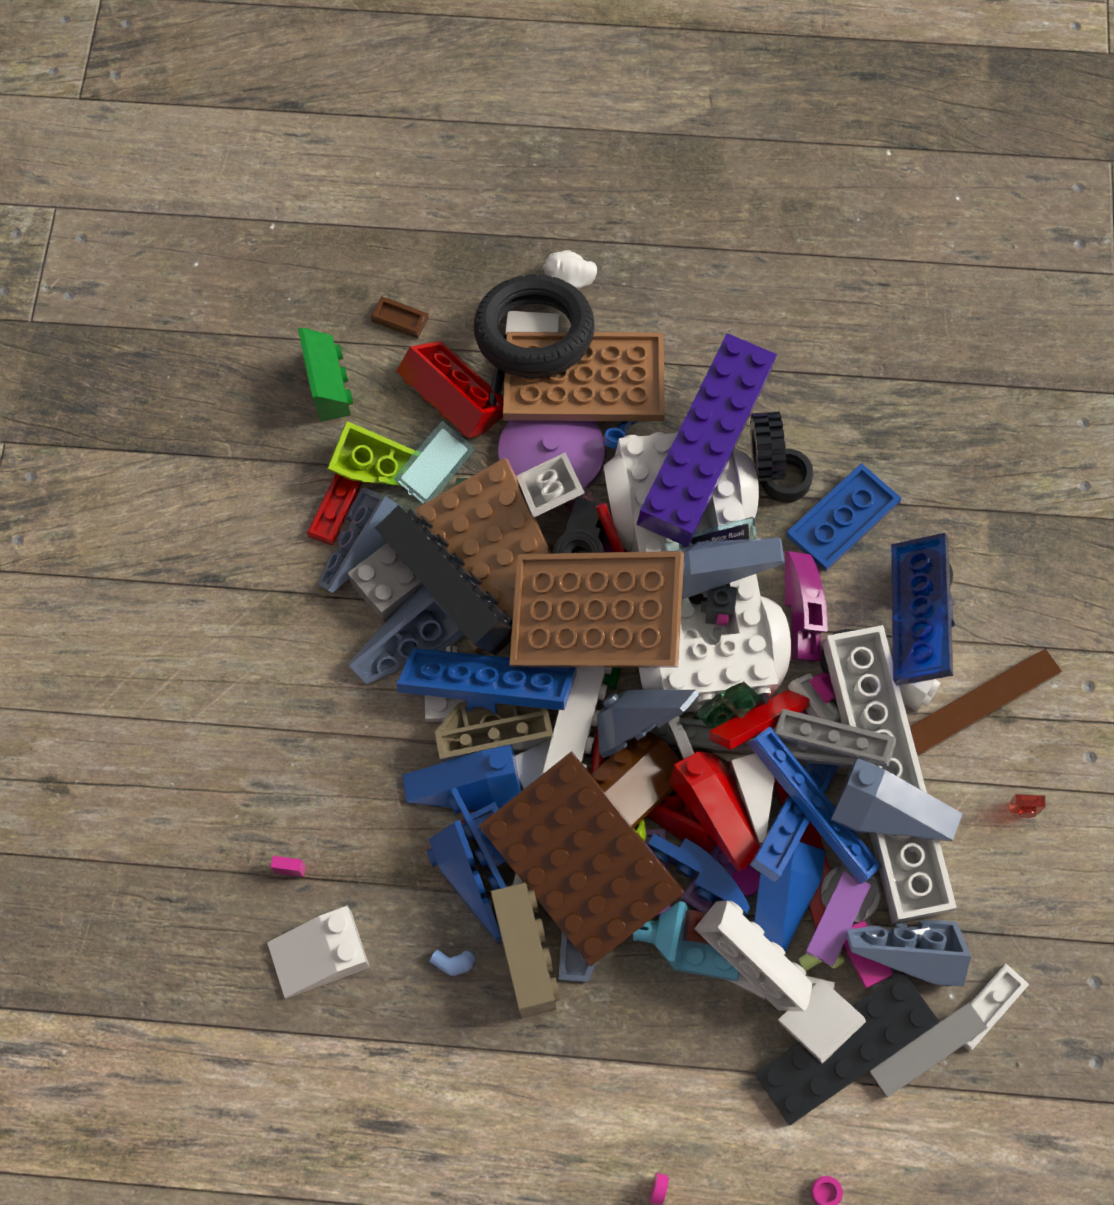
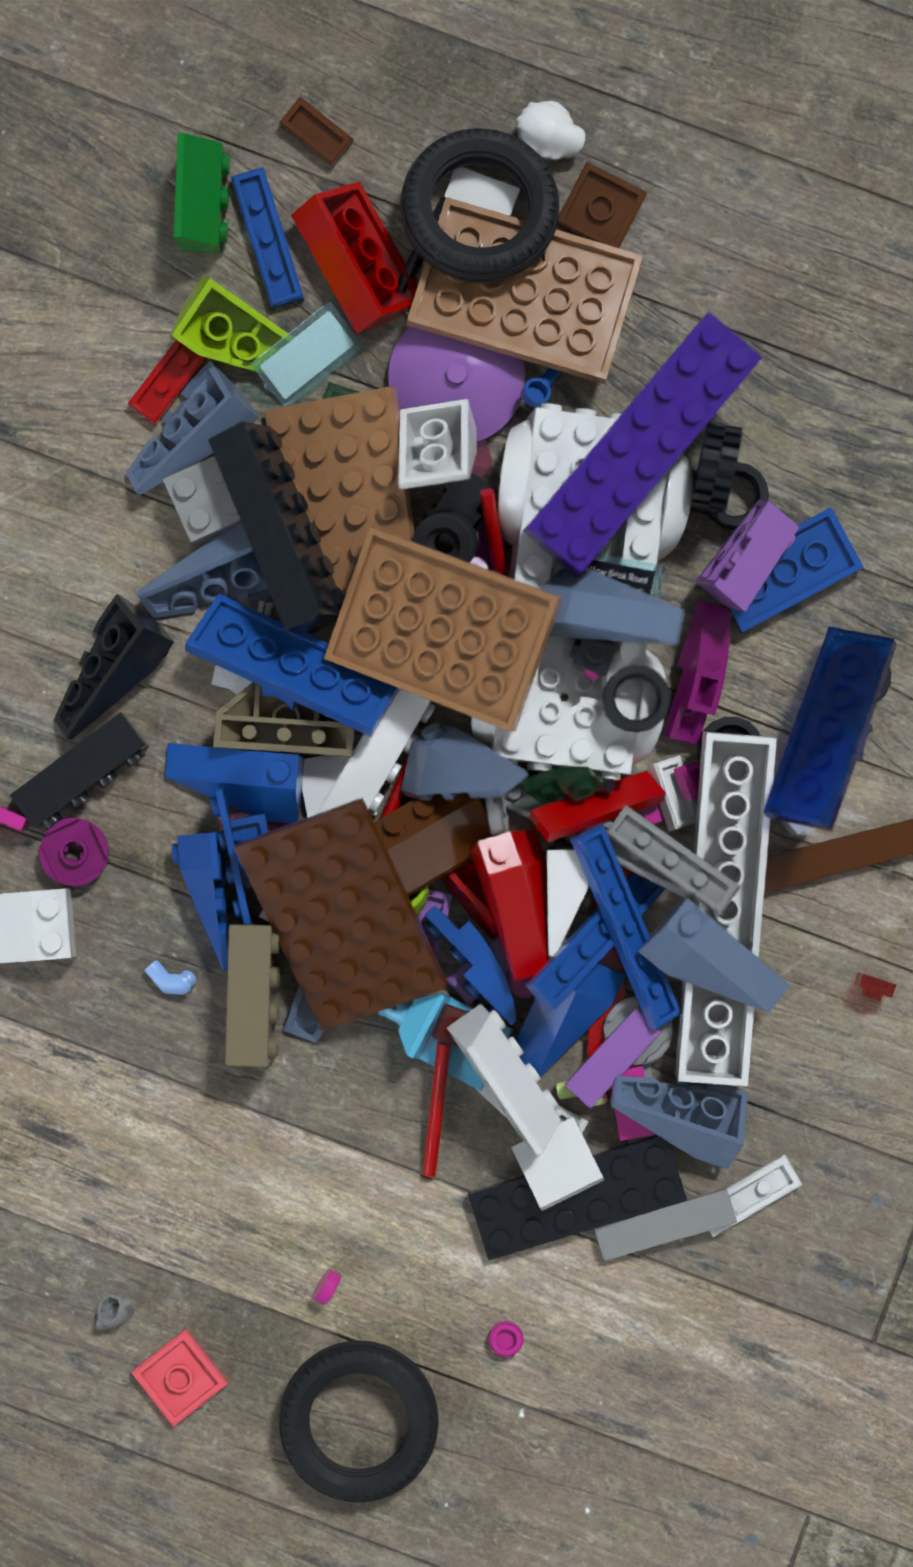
camera: 10 degrees right, 20 degrees up
(331, 877) = (83, 834): none -> magenta plate
(336, 814) = (79, 771): none -> black brick
(348, 715) = (121, 657): none -> black wedge
(383, 395) = (267, 238): none -> blue tile
(622, 310) = (601, 206): none -> reddish brown tile
(706, 1006) = (436, 1109): none -> red bar
(768, 600) = (649, 675): none -> black tyre
(813, 507) = (748, 556): none -> medium lavender wedge

